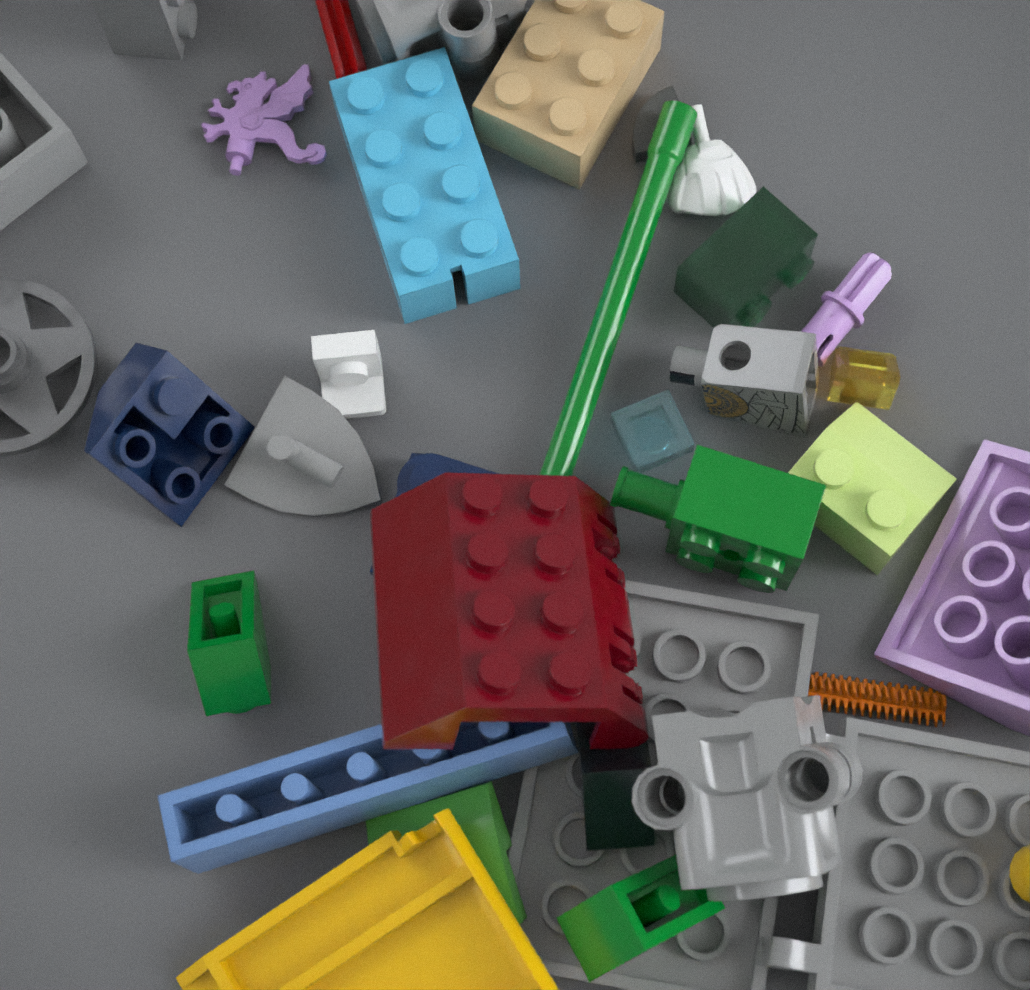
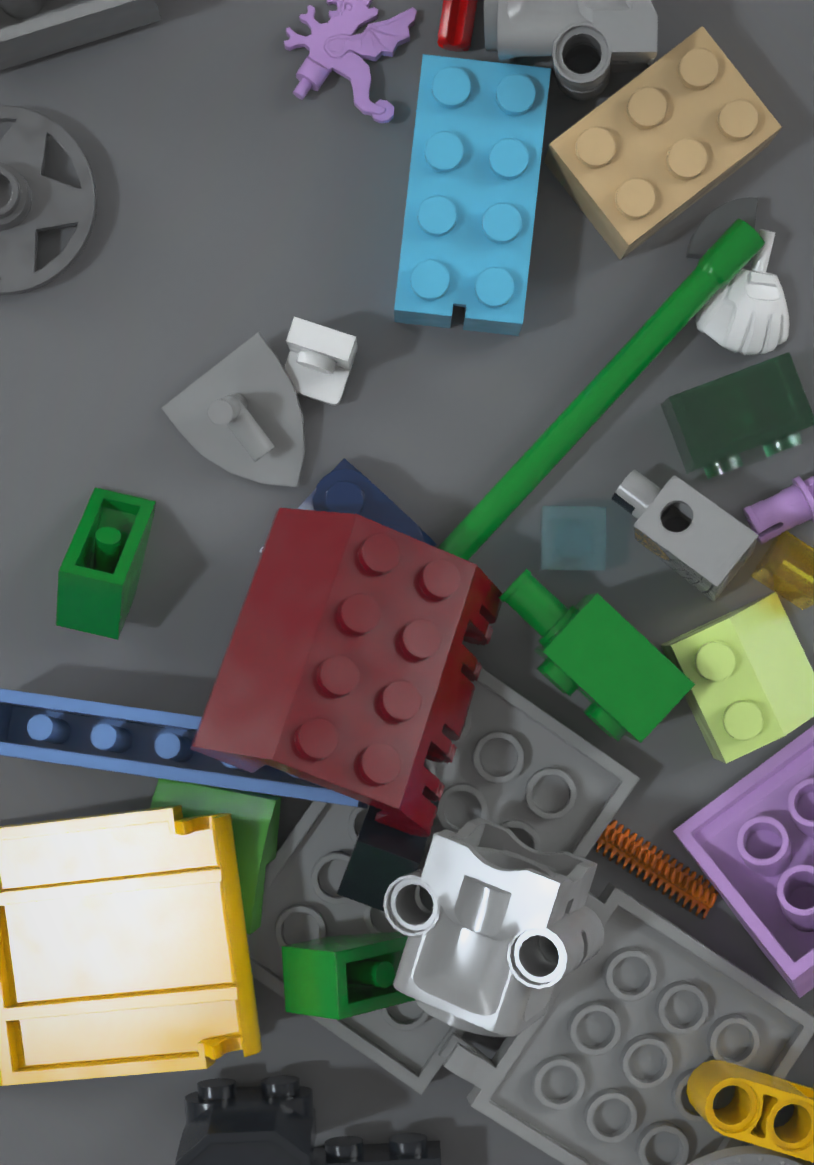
camera: 20 degrees right, 15 degrees up
(163, 431) = (121, 336): dark blue slope -> none

